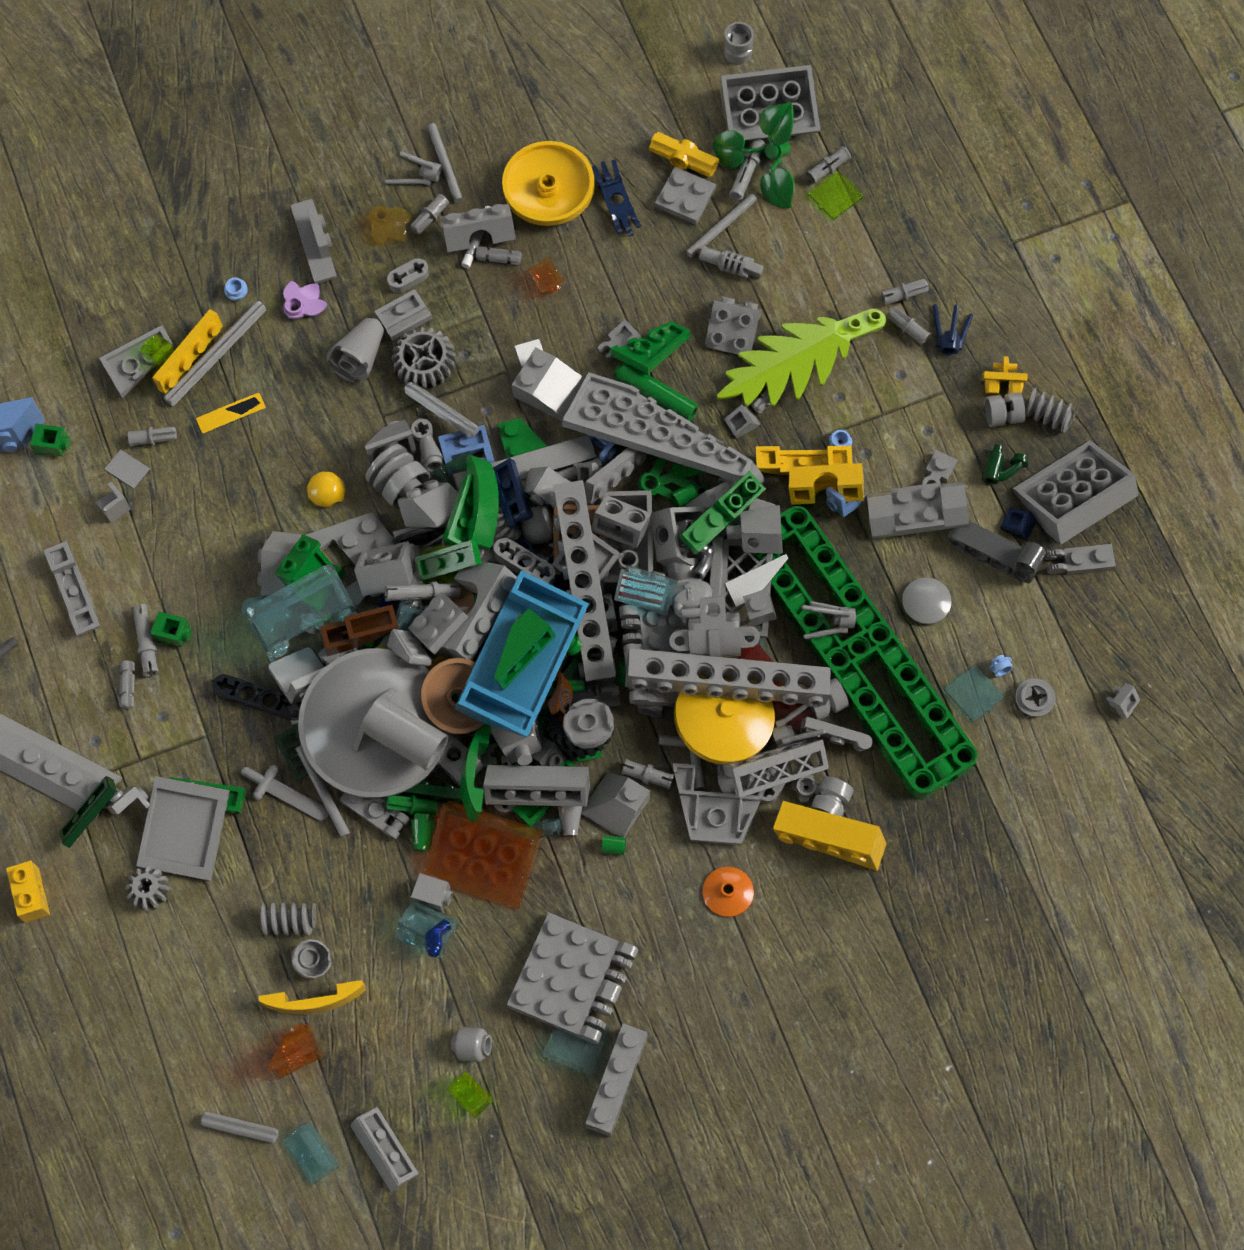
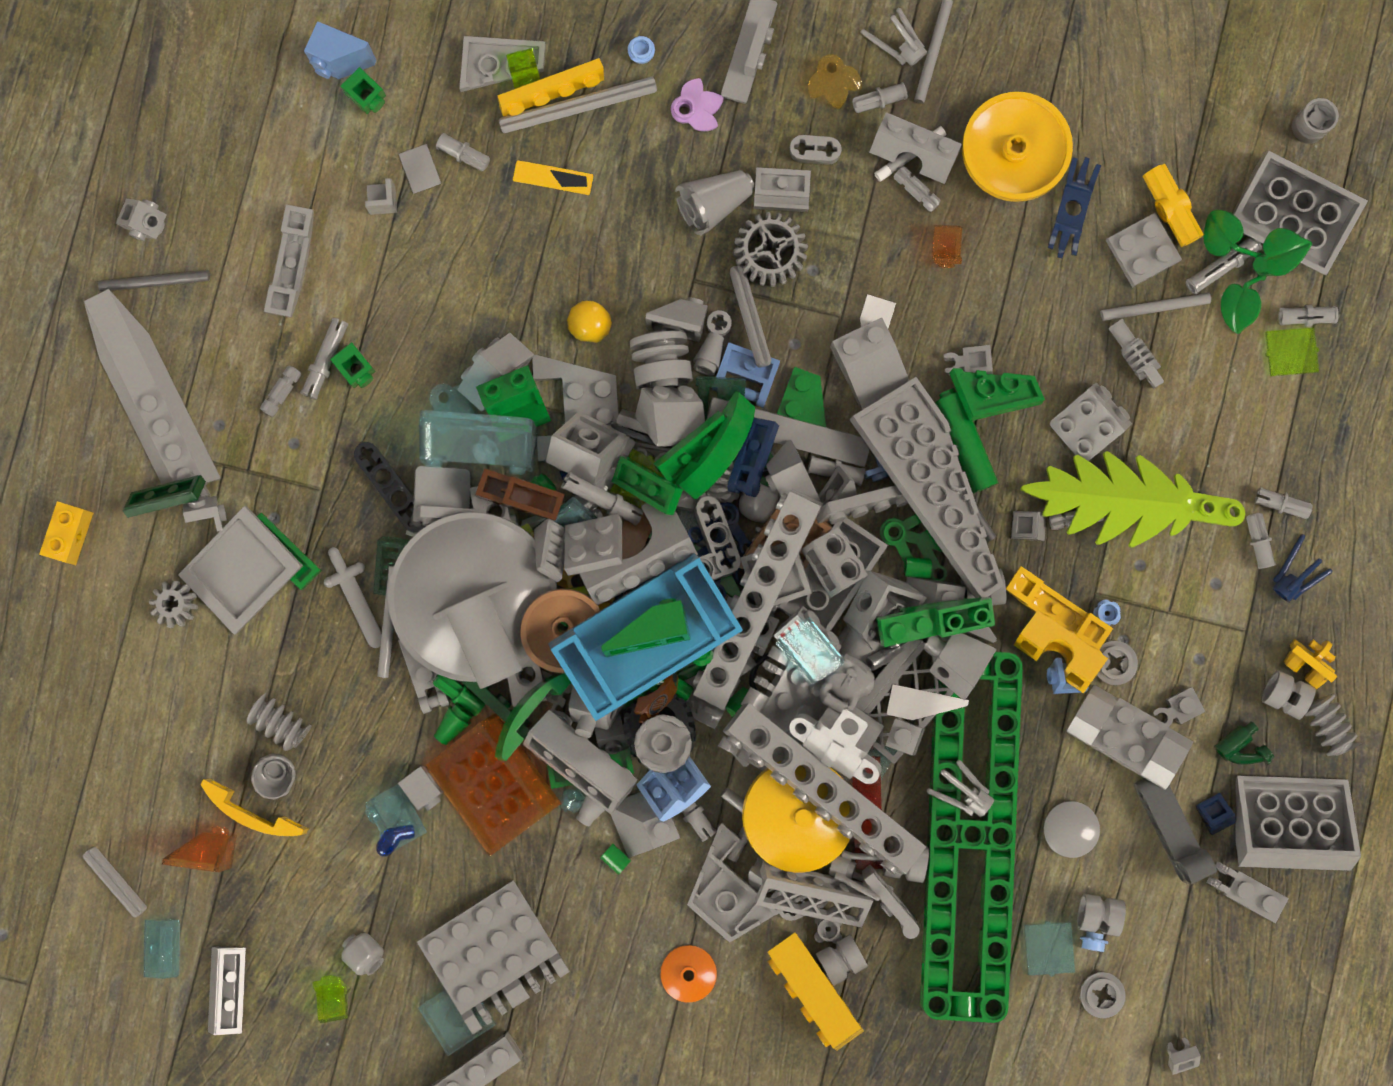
camera: 30 degrees right, 15 degrees up
(618, 760) = (674, 790): none -> light blue slope
(881, 466) = (1127, 665): none -> light grey gear
(991, 641) = (1102, 915): none -> light grey wheel

